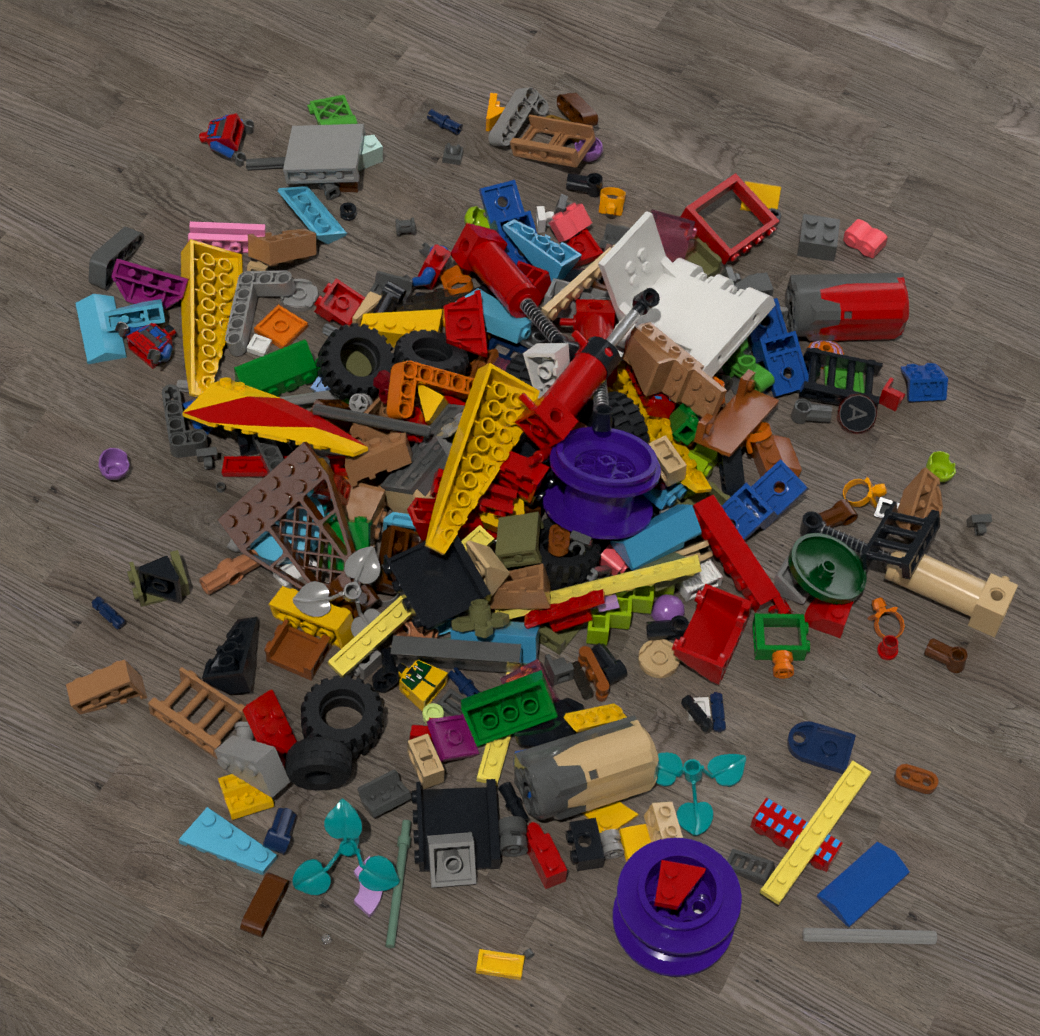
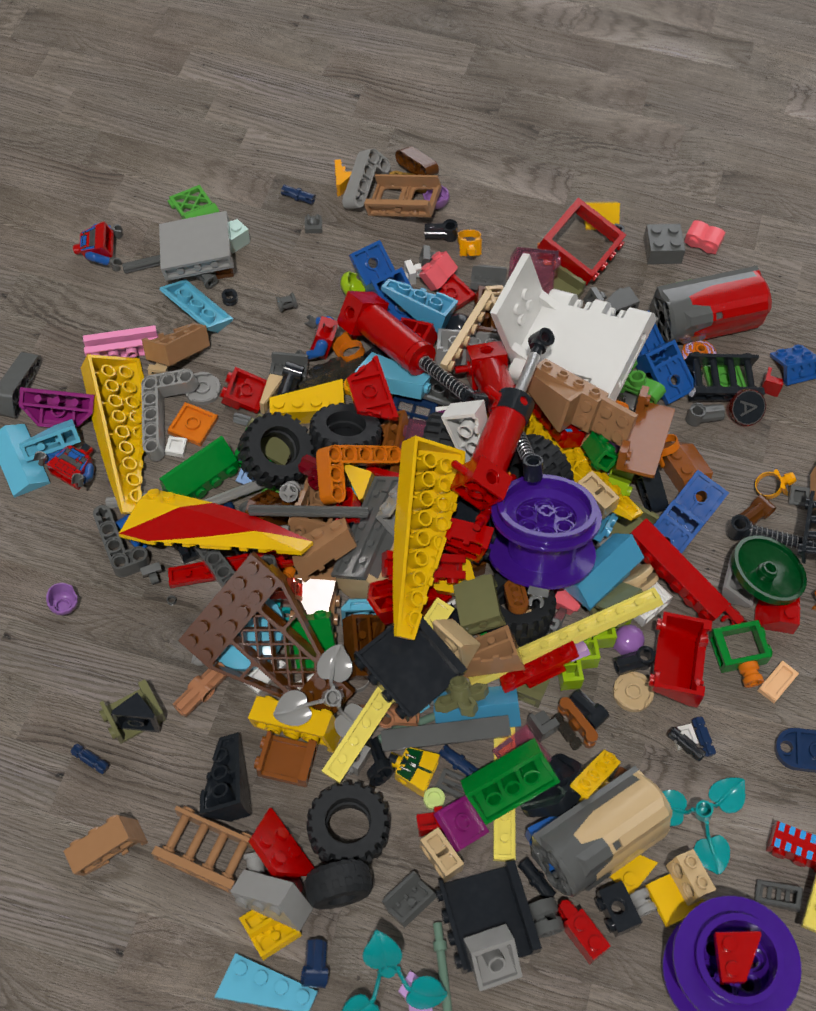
camera: 10 degrees left, 5 degrees up
(810, 678) = (778, 682): none -> light nougat tile

